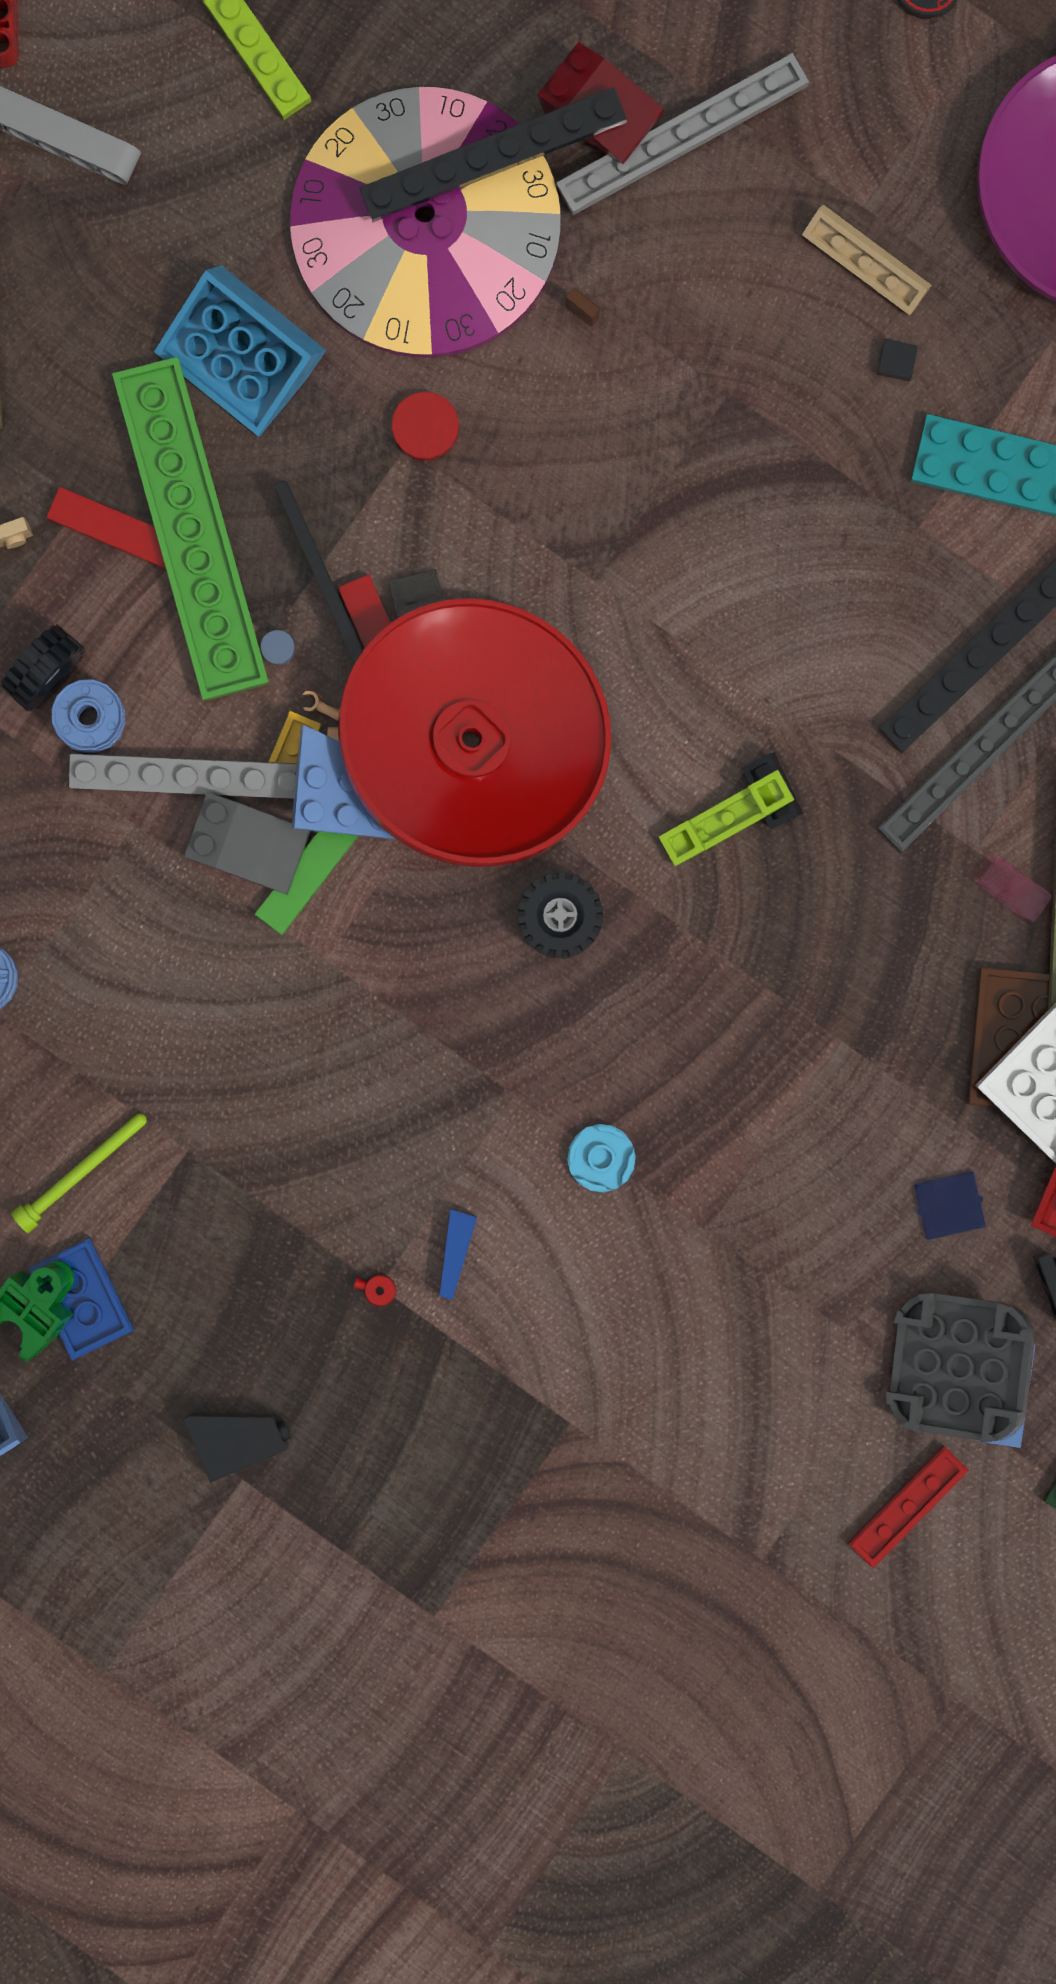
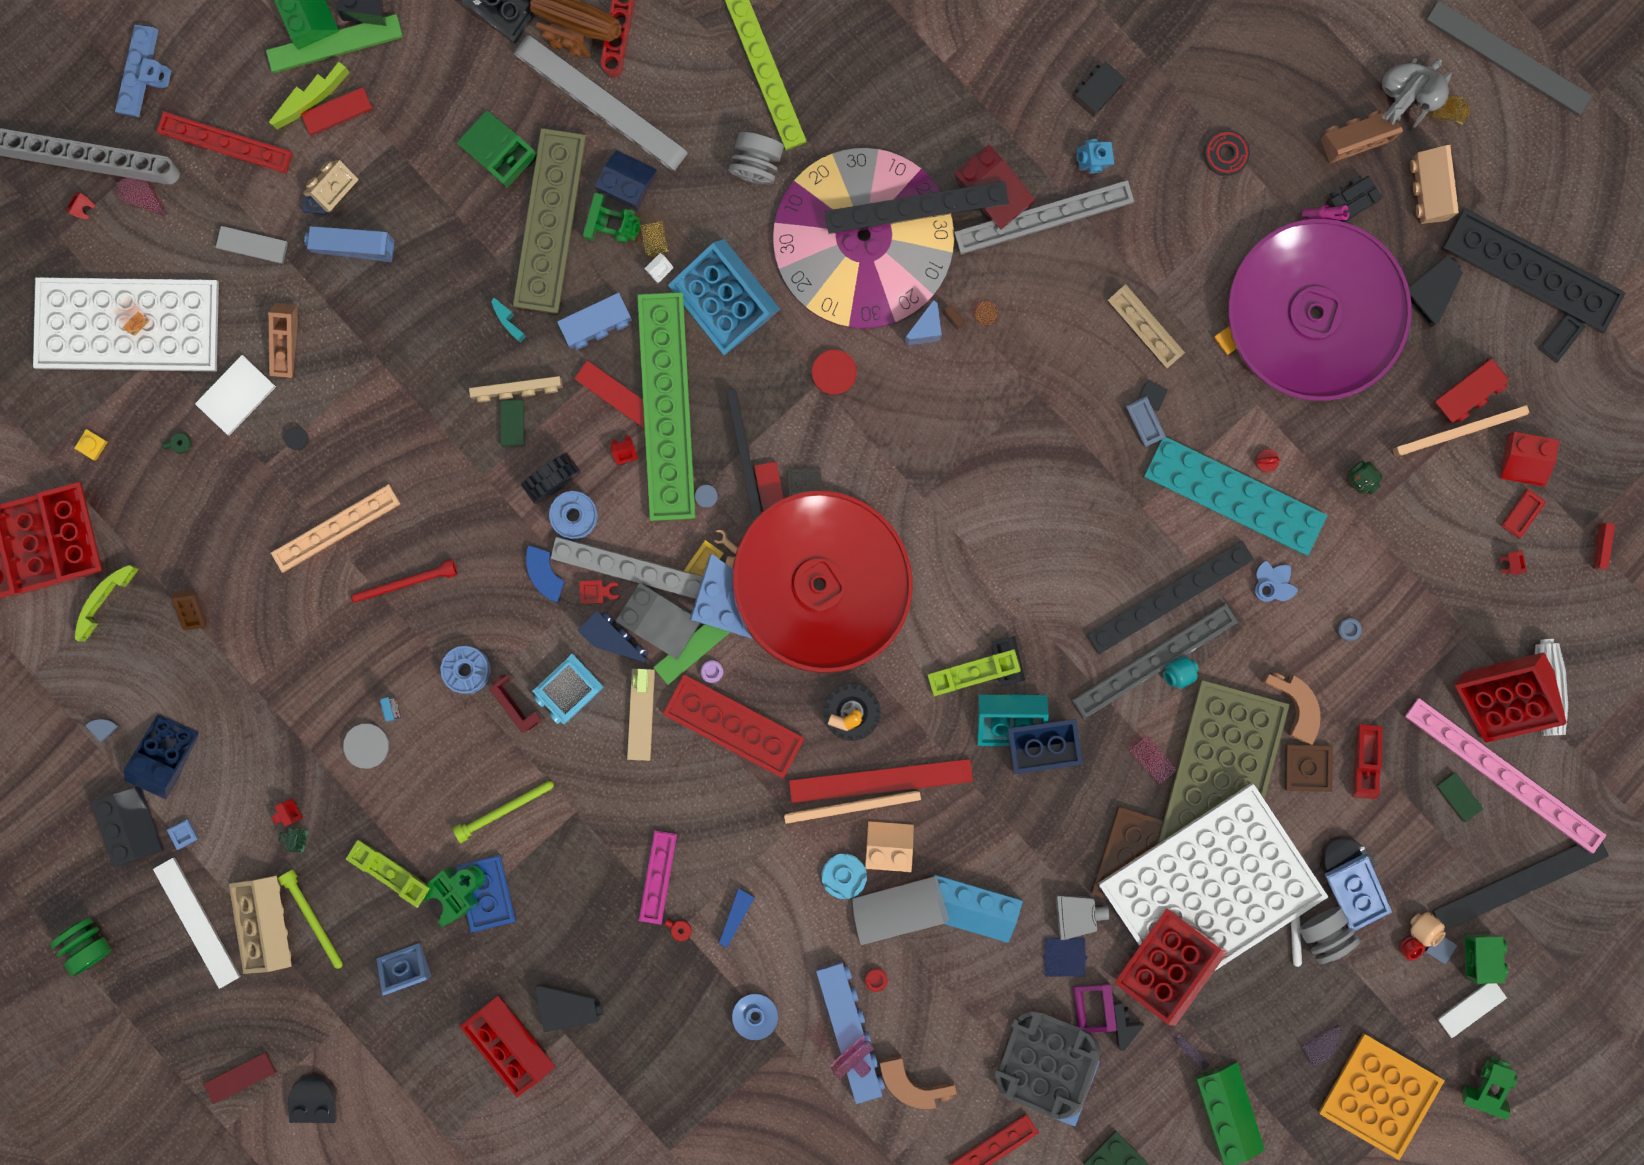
camera: 20 degrees right, 0 degrees up
(31, 277) = (599, 218): none -> green tile
(57, 212) = (625, 180): none -> dark blue slope
(58, 427) = (595, 321): none -> medium blue brick
(62, 814) = (542, 575): none -> blue tile
(85, 1036) = (524, 724): none -> dark red panel
(119, 287) = (654, 238): none -> clear yellow brick
(135, 328) = (659, 268): none -> white tile
(136, 973) = (567, 689): none -> window
(142, 607) = (623, 451): none -> red tile
(143, 821) = (593, 591): none -> red plate
(161, 1515) = (507, 1046): none -> red slope
(174, 883) = (604, 635): none -> dark blue slope
(240, 935) = (641, 680): none -> yellowish green plate
(242, 135) = (757, 153): none -> light grey wheel
(252, 987) = (641, 720): none -> tan tile
(328, 1220) = (657, 877): none -> dark pink tile
(342, 901) = (712, 671): none -> lavender tile
(391, 974) = (733, 726): none -> red plate
(516, 1410) = (758, 1028): none -> medium blue dish
(547, 329) = (927, 327): none -> medium blue slope
(555, 931) = (848, 722): none -> arm
(591, 1053) = (852, 806): none -> light nougat tile
(624, 1007) = (881, 781): none -> red tile
(628, 292) = (986, 313): none -> clear orange tile
(658, 1099) = (889, 846): none -> light nougat slope
(659, 1384) = (848, 1026): none -> medium blue brick
(674, 1420) = (853, 1059): none -> clear pink tile
(681, 1299) = (876, 979): none -> red tile
(693, 1188) = (899, 910): none -> light grey slope
(737, 27) = (1095, 156): none -> dark azure brick
(766, 1453) = (907, 1091): none -> nougat arch
(797, 876) = (1003, 712): none -> teal slope
(798, 1163) = (979, 908): none -> dark azure slope
(853, 902) = (1044, 746): none -> dark blue slope
(896, 398) = (1145, 421): none -> sand blue tile
(956, 1140) = (1078, 915): none -> light grey torso
(987, 257) = (1225, 341): none -> light orange tile
(1027, 1260) = (1107, 1004): none -> magenta tile
(1028, 752) = (1181, 672): none -> teal head

